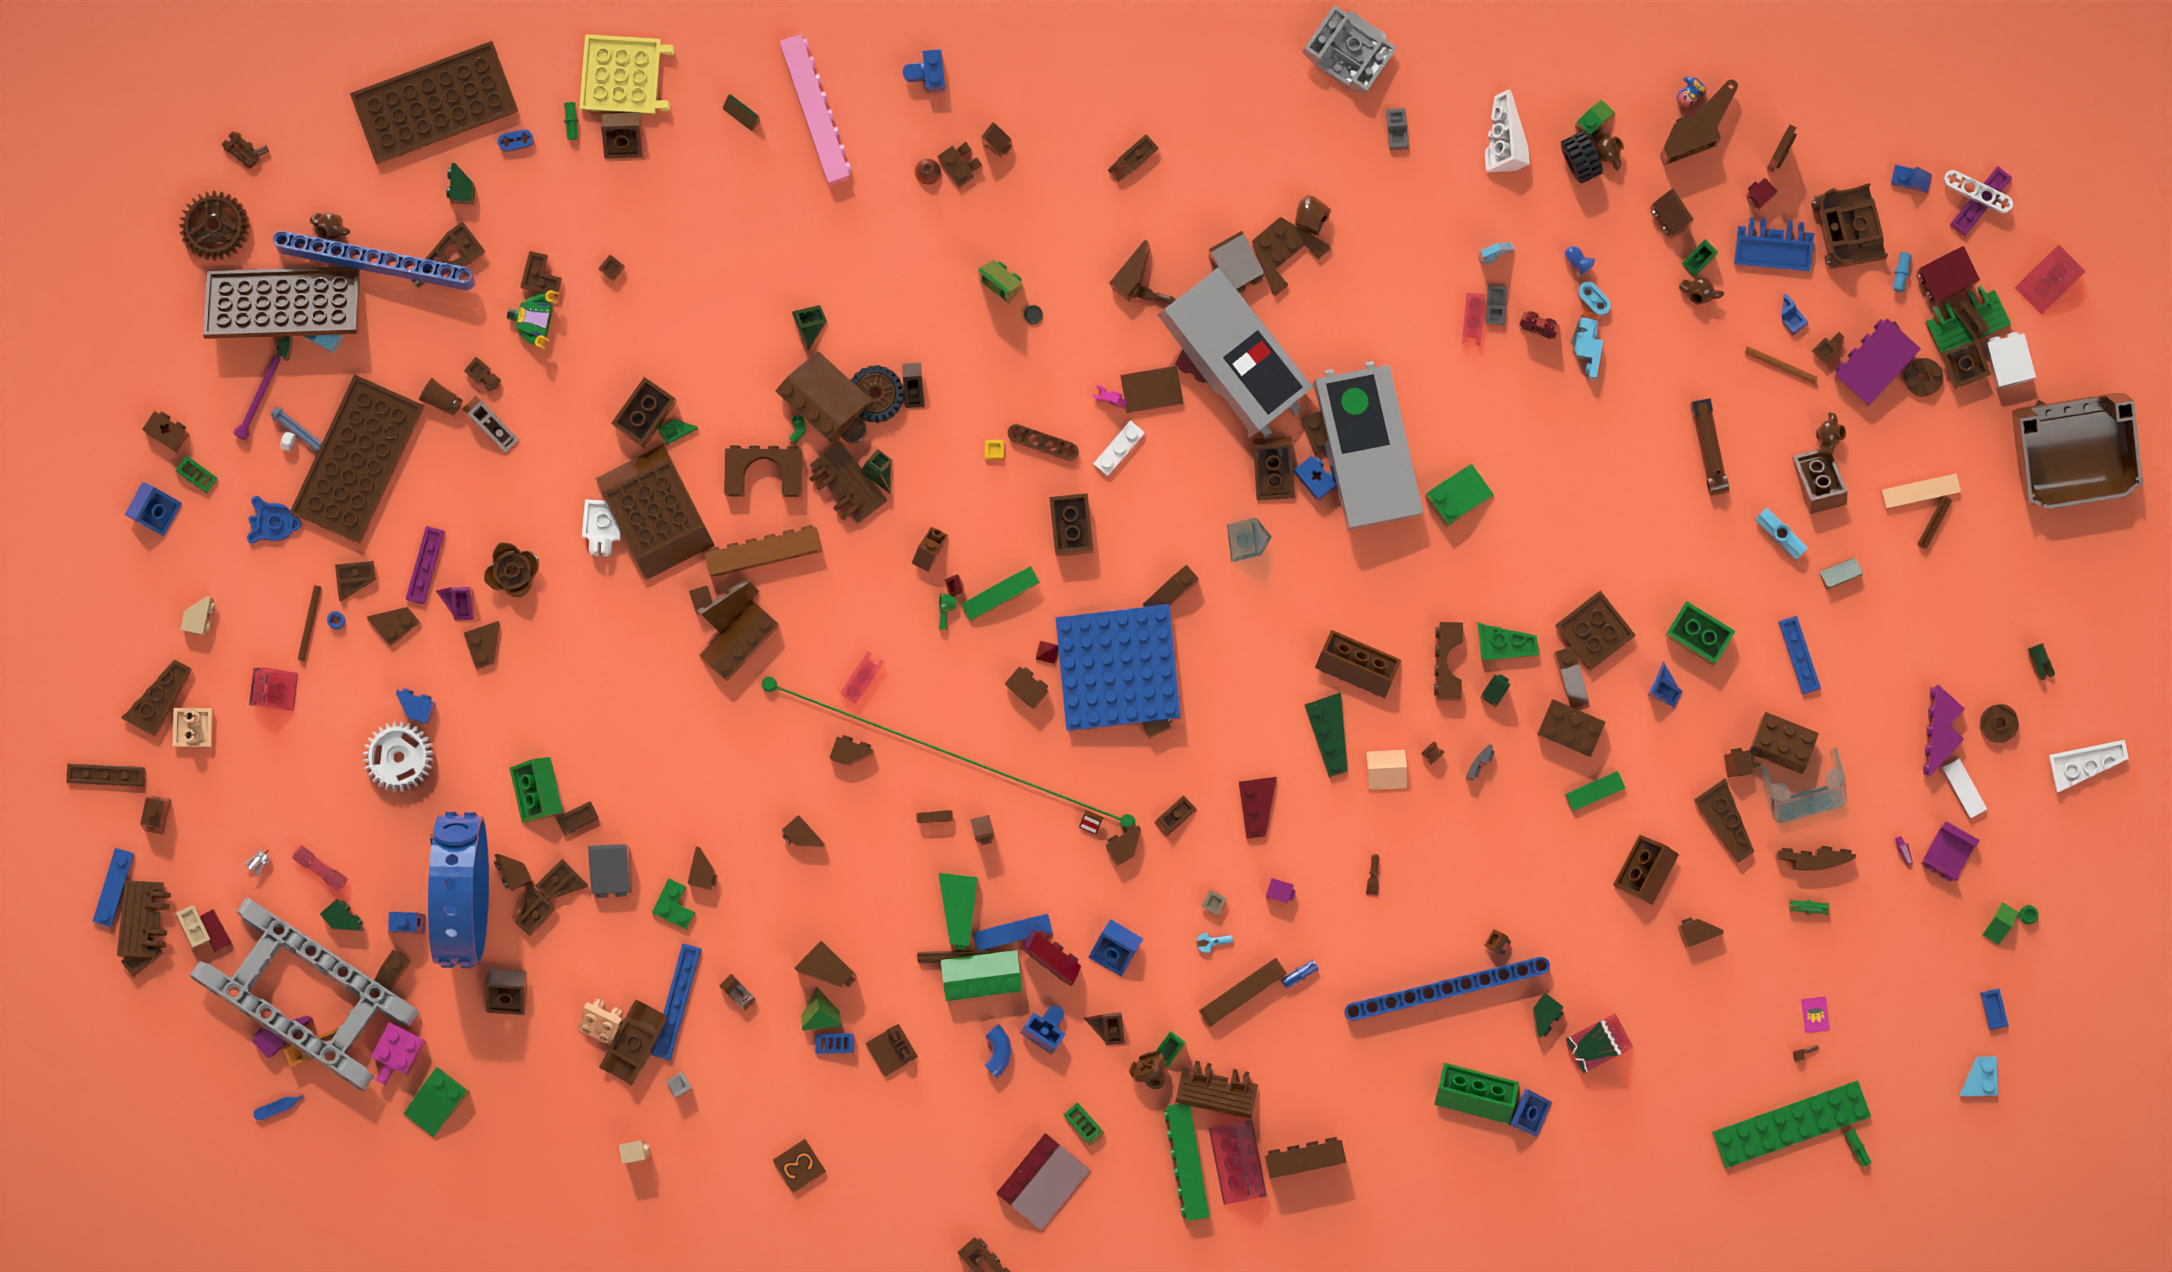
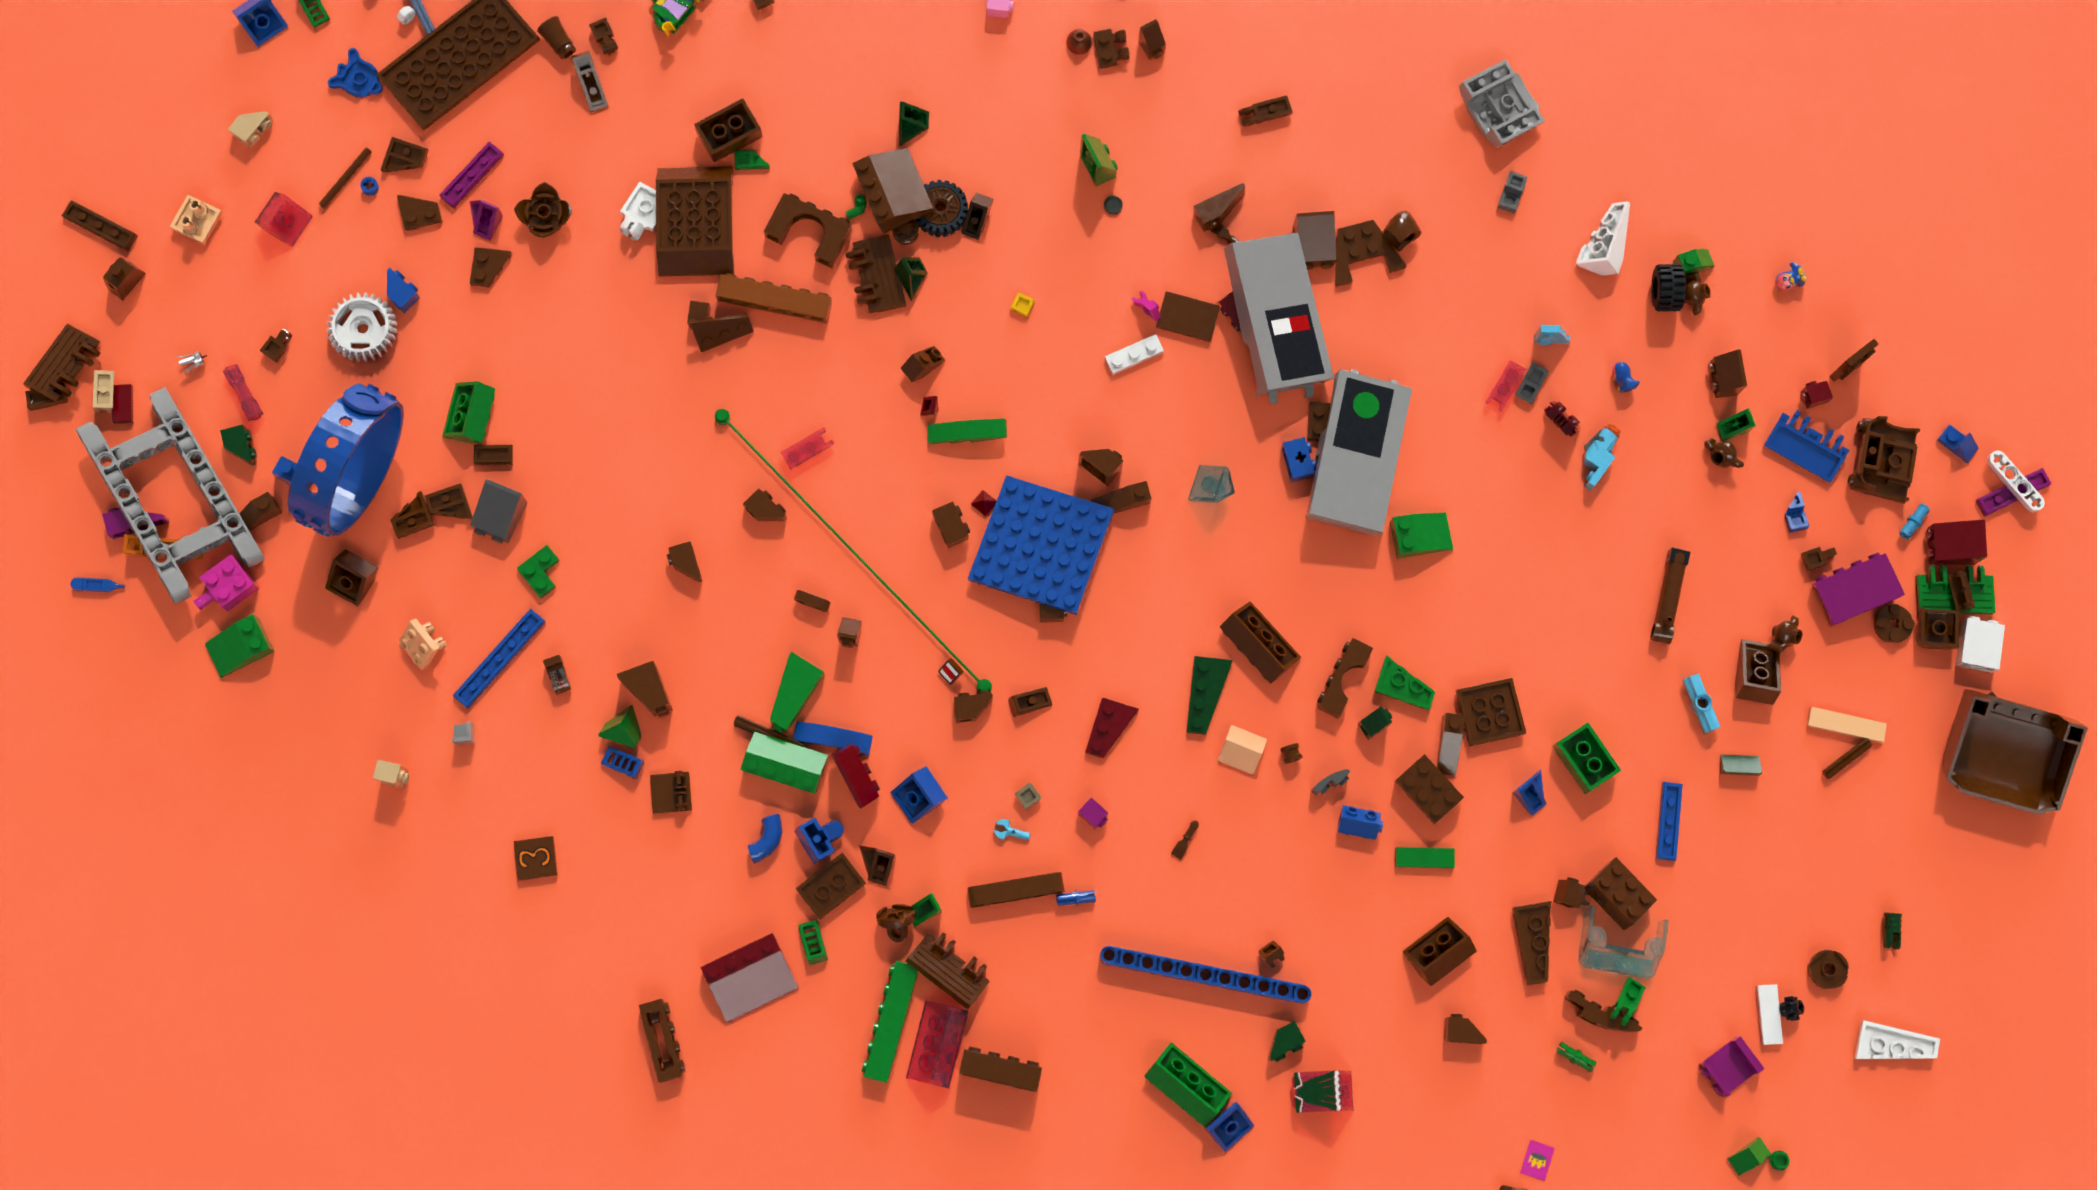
camera: 15 degrees right, 5 degrees down
(113, 887) = (53, 325): blue plate -> none
(154, 705) = (175, 184): reddish brown wing -> none
(327, 813) = (275, 347): none -> reddish brown plate
(514, 872) = (412, 476): reddish brown slope -> none
(634, 1042) = (441, 675): reddish brown piece -> none
(702, 872) = (579, 552): reddish brown slope -> none
(739, 640) = (714, 366): reddish brown slope -> none
(946, 604) = (914, 419): green bar -> none
(1042, 445) = (1066, 320): reddish brown beam -> none
(1071, 524) = (1059, 399): reddish brown brick -> none
(1076, 1066) = (831, 886): none -> reddish brown plate
(1139, 567) = (1102, 464): none -> reddish brown slope
(1273, 468) = (1264, 434): reddish brown slope -> none
(1522, 787) = (1359, 822): none -> blue brick
(1595, 298) = (1624, 418): medium azure plate -> none
(1701, 131) = (1782, 314): reddish brown slope -> none
(1781, 365) = (1766, 553): dark orange bar -> none
(1832, 835) = (1628, 1000): none -> green hinge
(1904, 850) = (1688, 1046): magenta bar -> none
(1941, 735) = (1770, 955): magenta slope -> none
(1981, 774) = (1791, 1008): none -> black gear
(2050, 279) = (2049, 589): clear pink slope -> none

